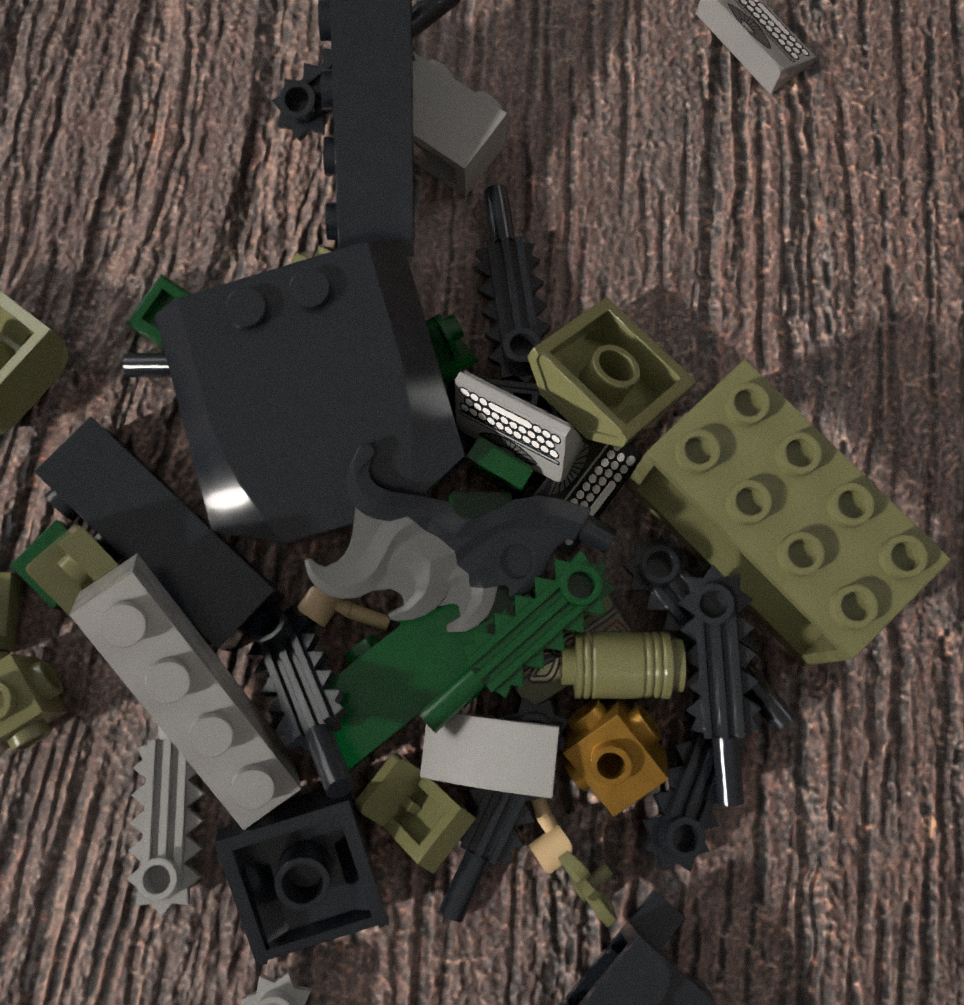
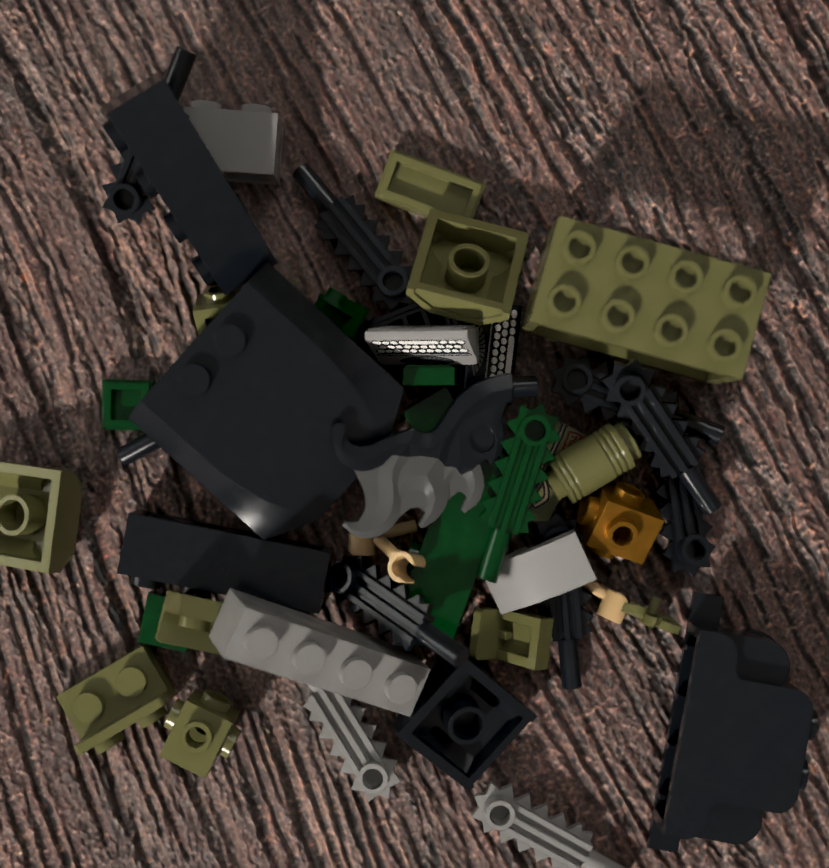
camera: 30 degrees left, 10 degrees up
(343, 643) = (398, 560): none -> tan hand
(603, 268) = (422, 185): none -> olive tile

